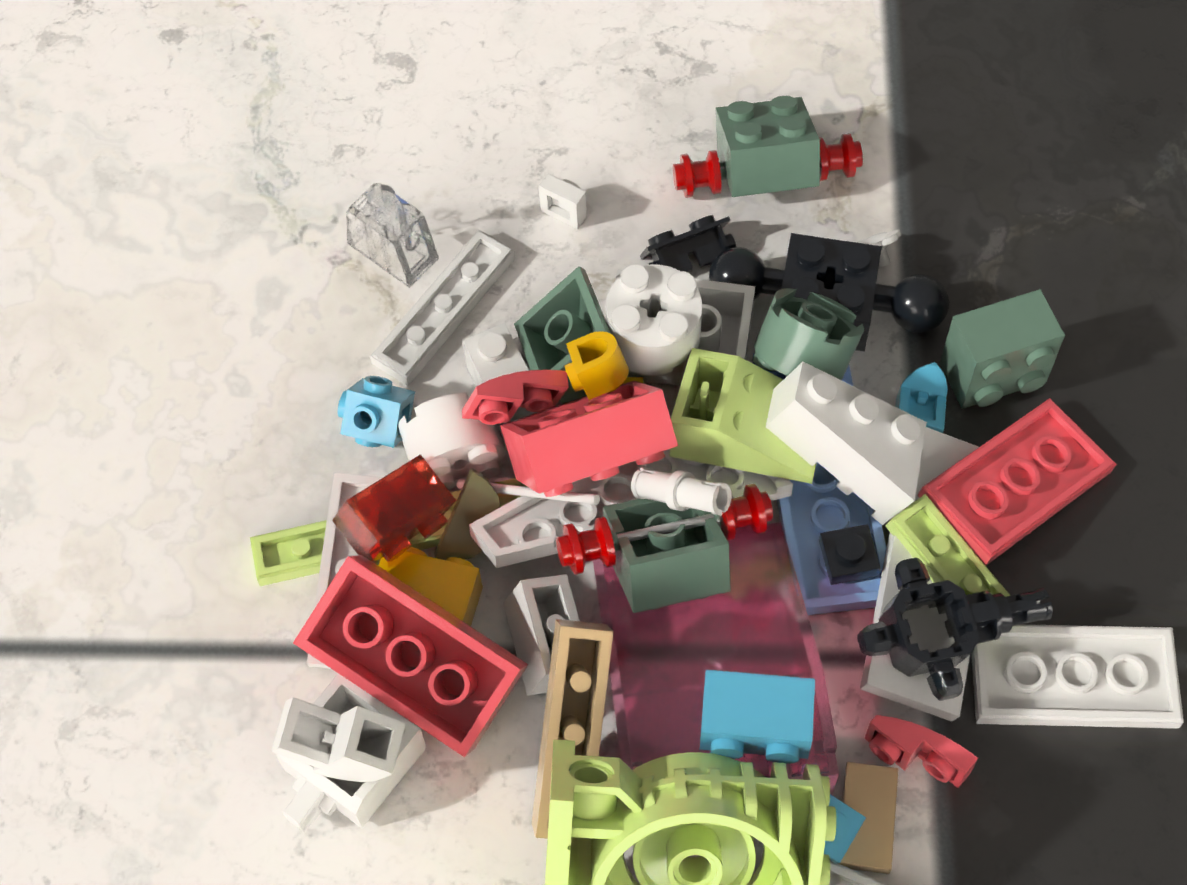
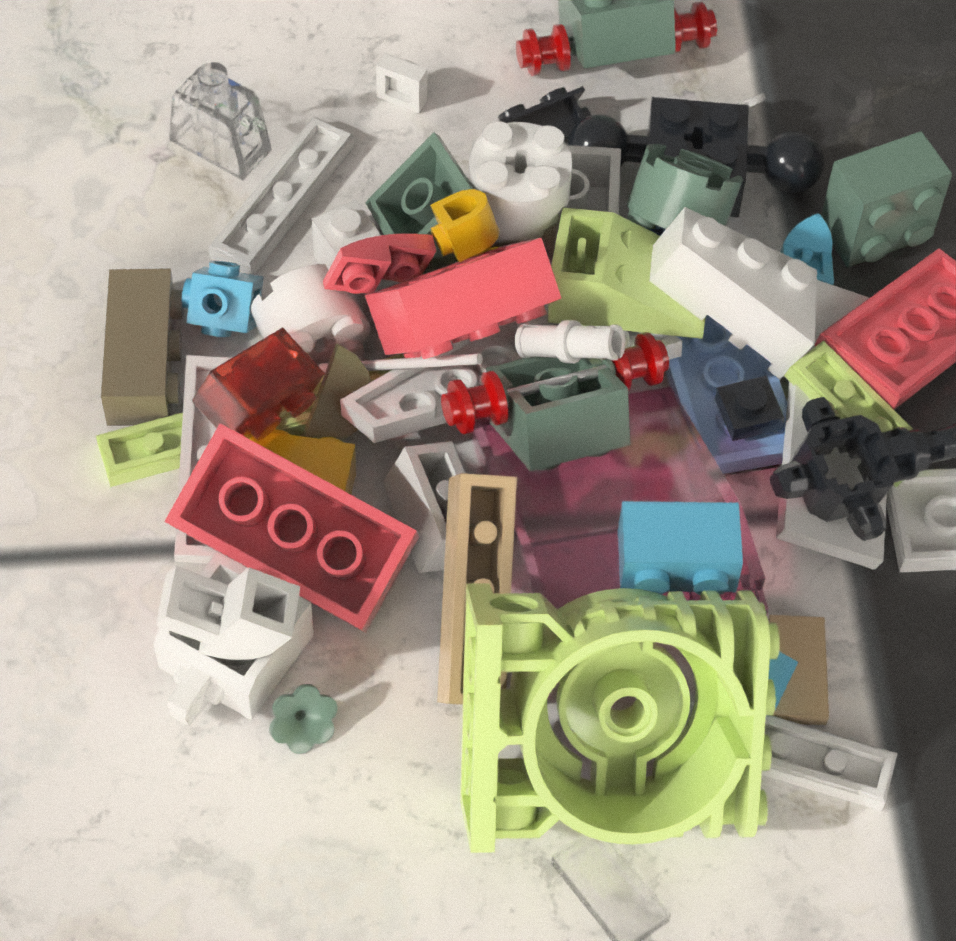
camera: 10 degrees left, 5 degrees down
(297, 453) = (141, 346): none -> dark tan brick
(406, 833) = (303, 718): none -> sand green plant
(902, 741) = (827, 588): coral slope -> none

